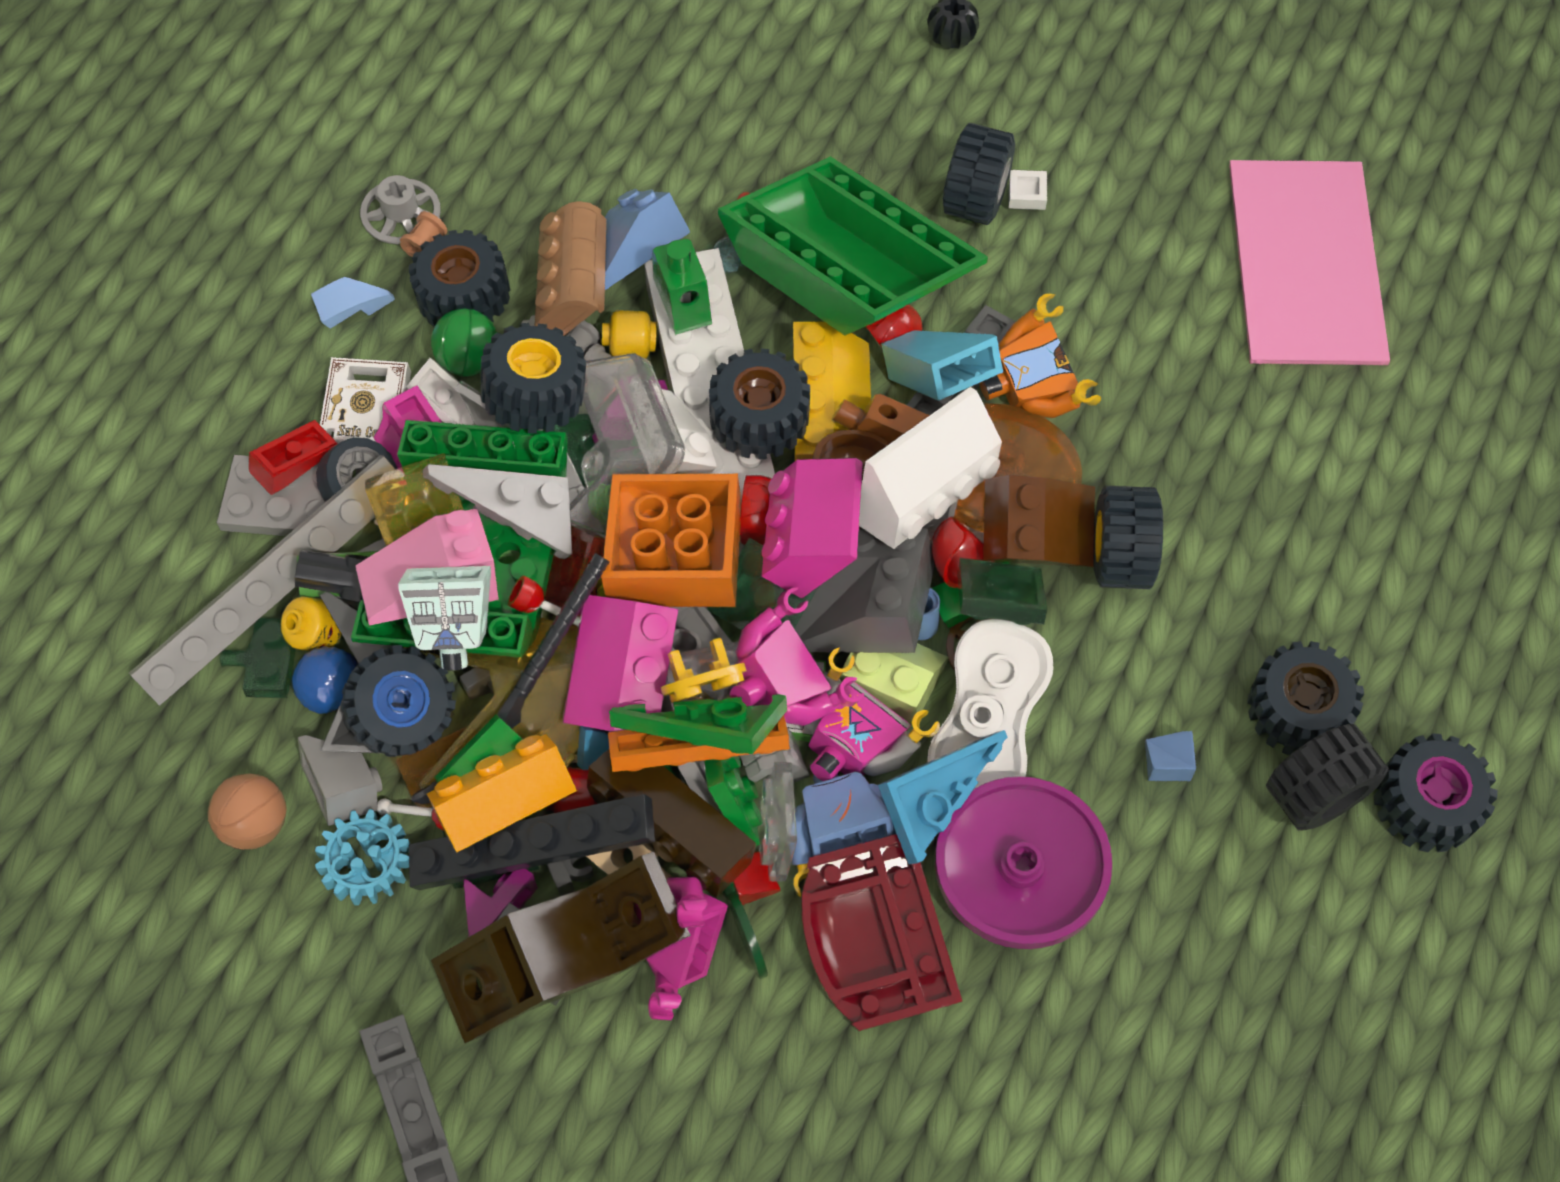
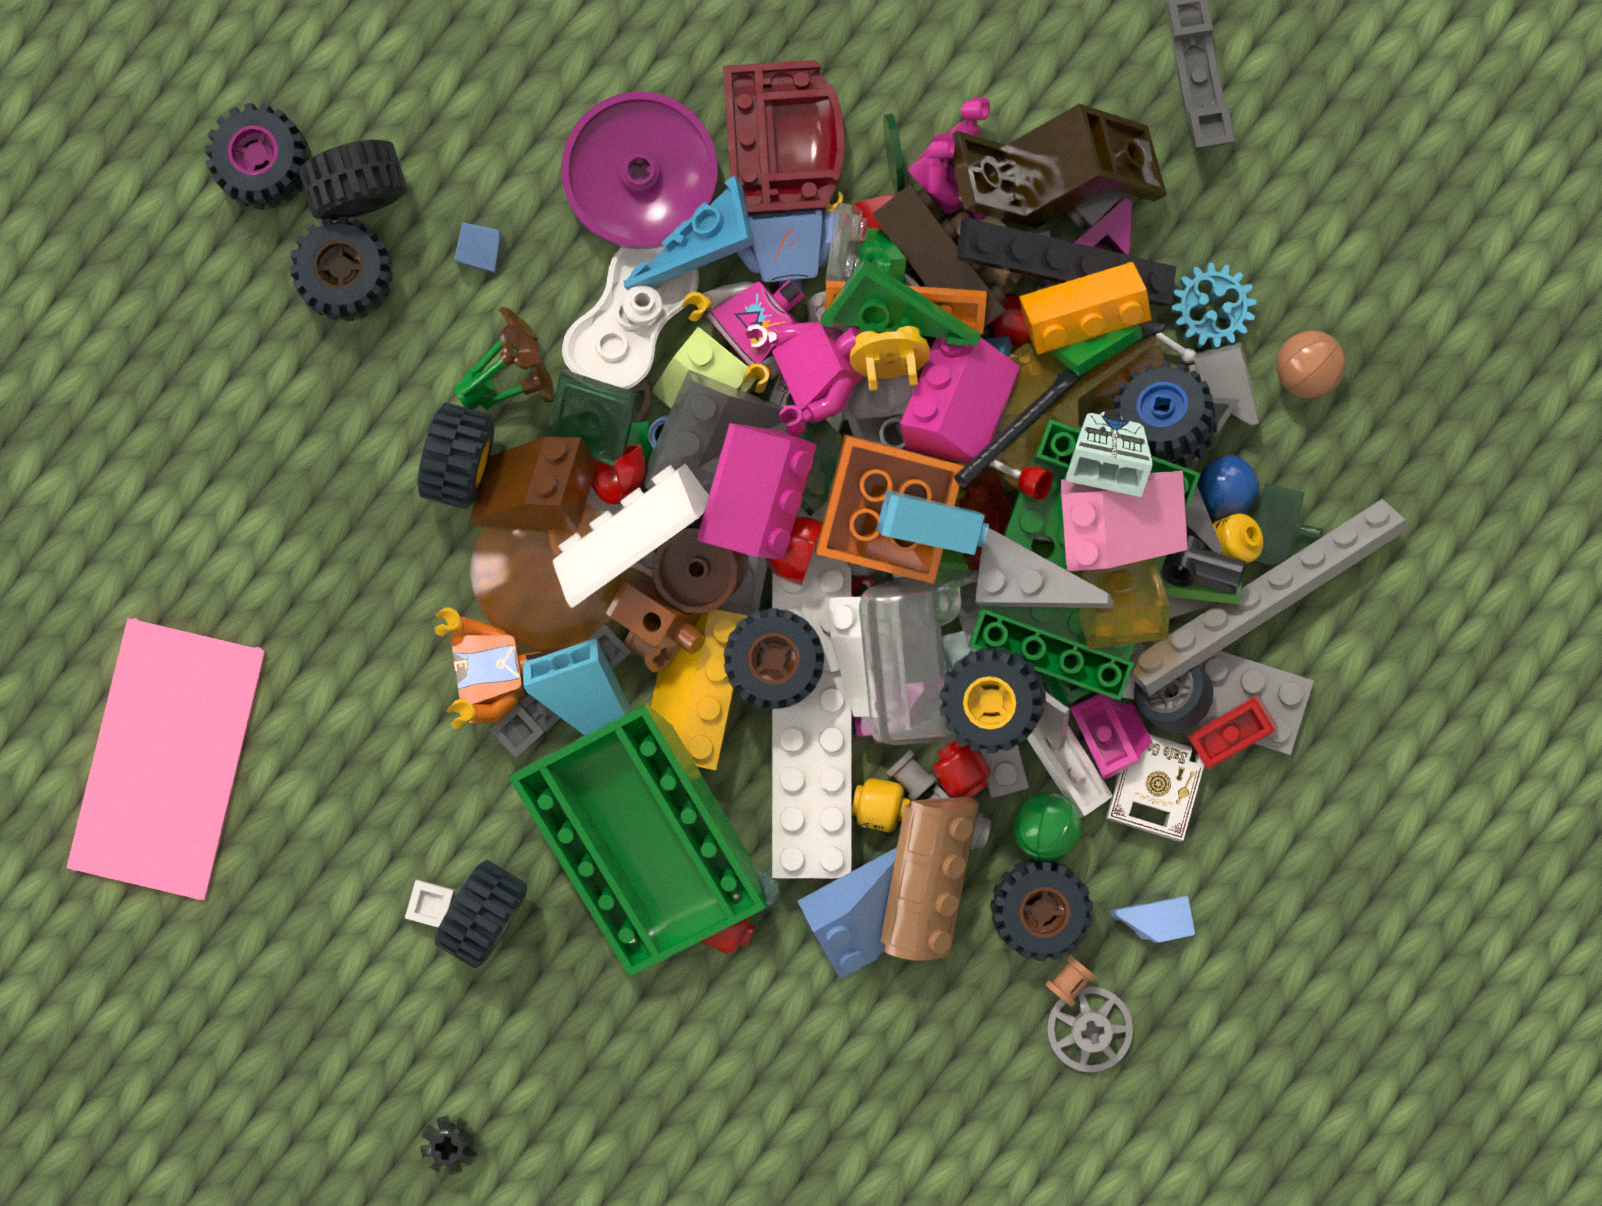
camera: 170 degrees left, 25 degrees up
(627, 503) = (931, 523): none -> medium azure slope
(680, 272) = (823, 815): green torso -> none
(1098, 631) = (518, 346): none -> plant

